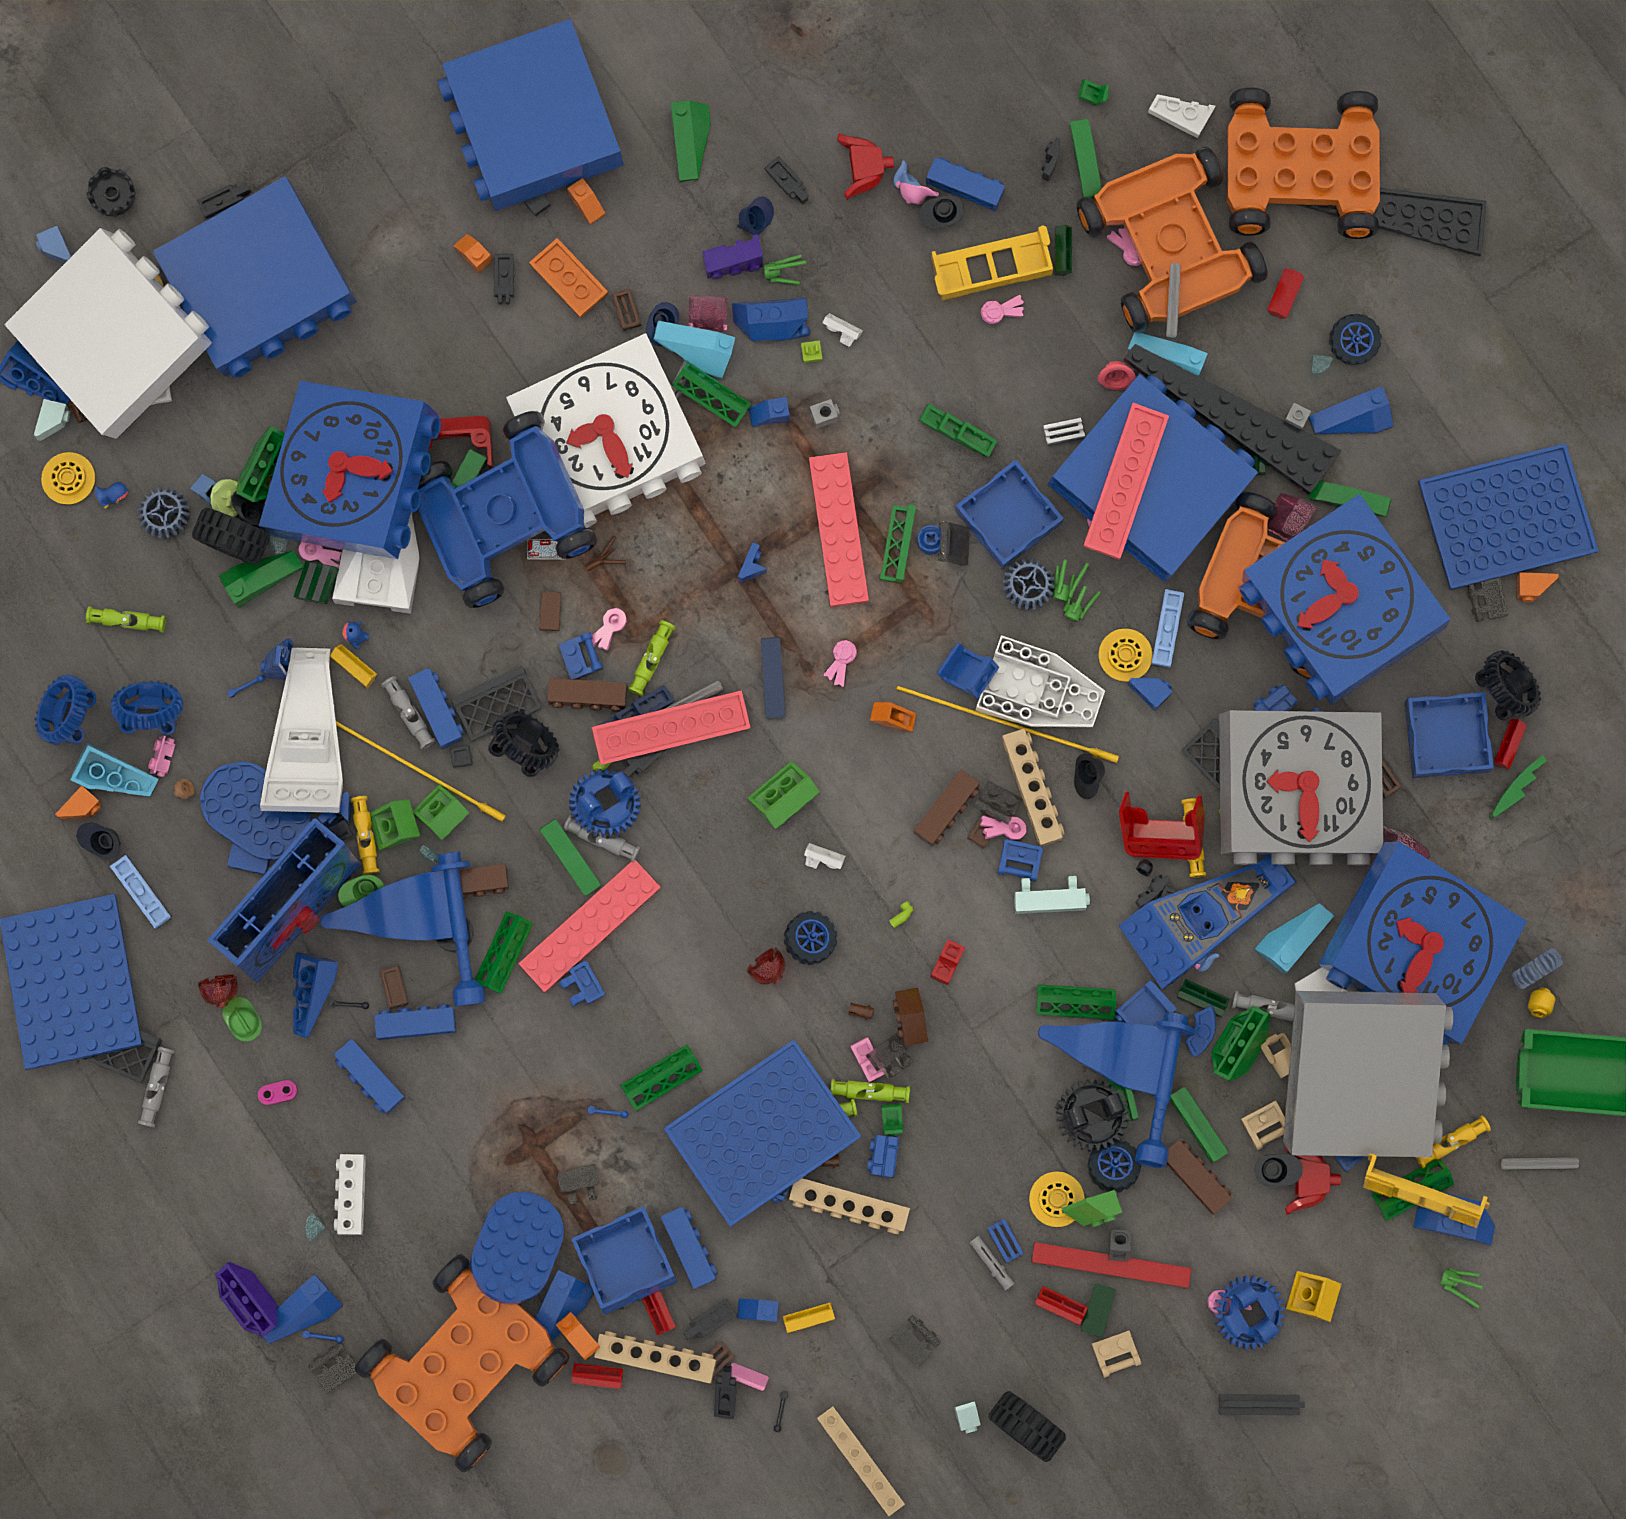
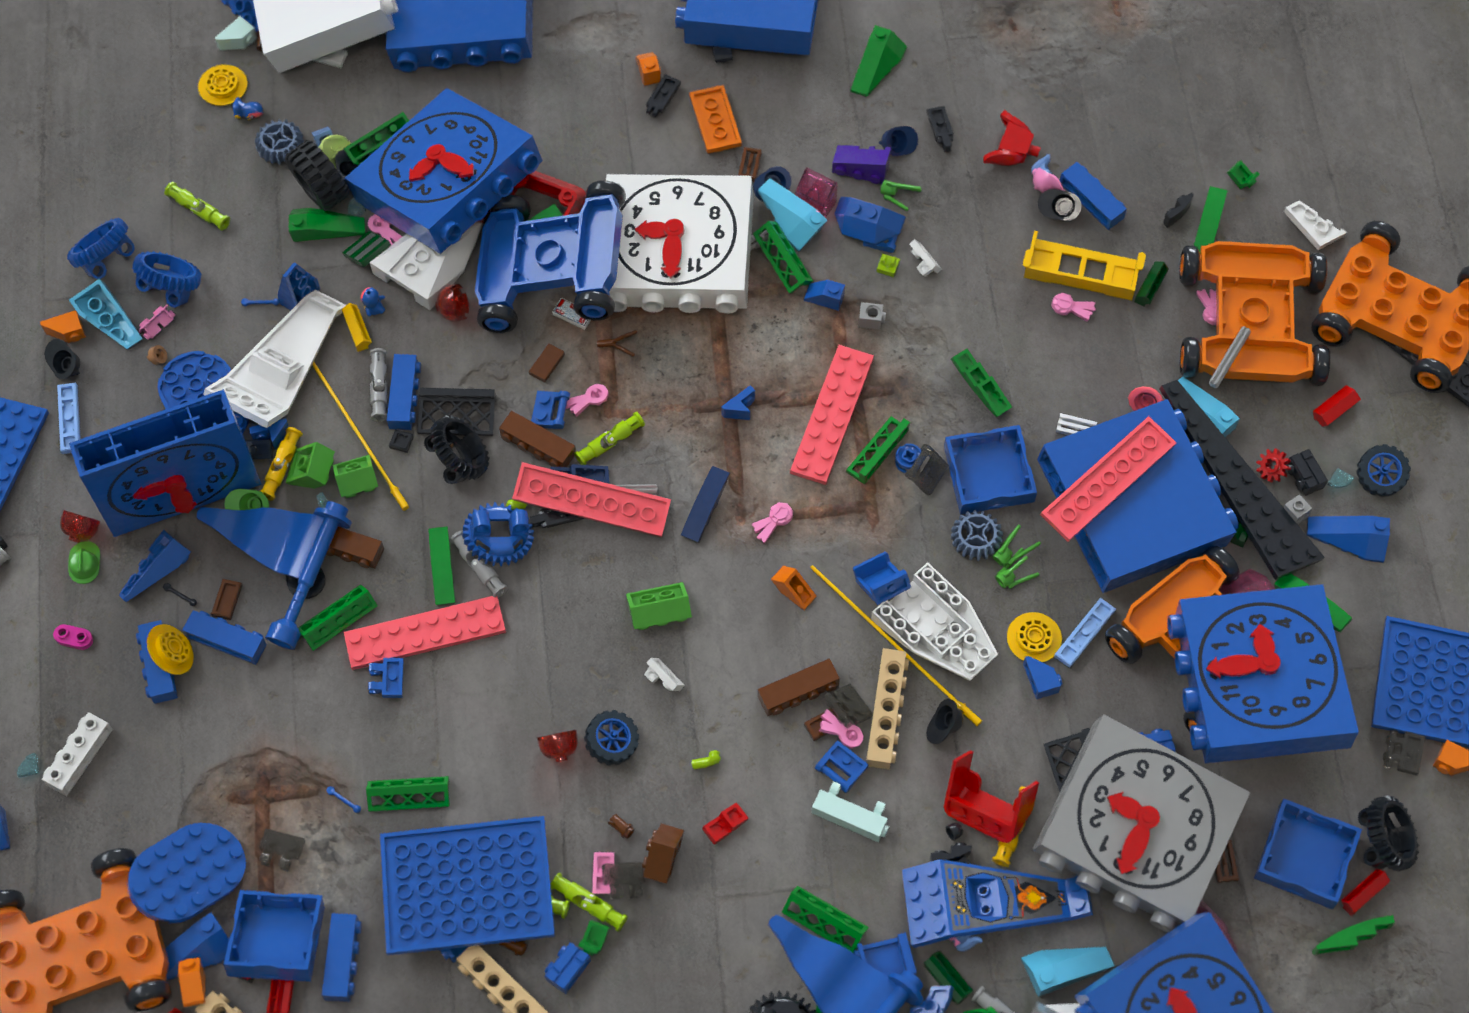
camera: 30 degrees right, 15 degrees down
(377, 1061) = (167, 644): none -> yellow wheel
(430, 598) = (452, 303): none -> clear red cylinder
(586, 201) = (763, 69): orange slope -> none
(1253, 377) = (1279, 468): none -> red gear
(1288, 374) = (1306, 472): none -> black brick

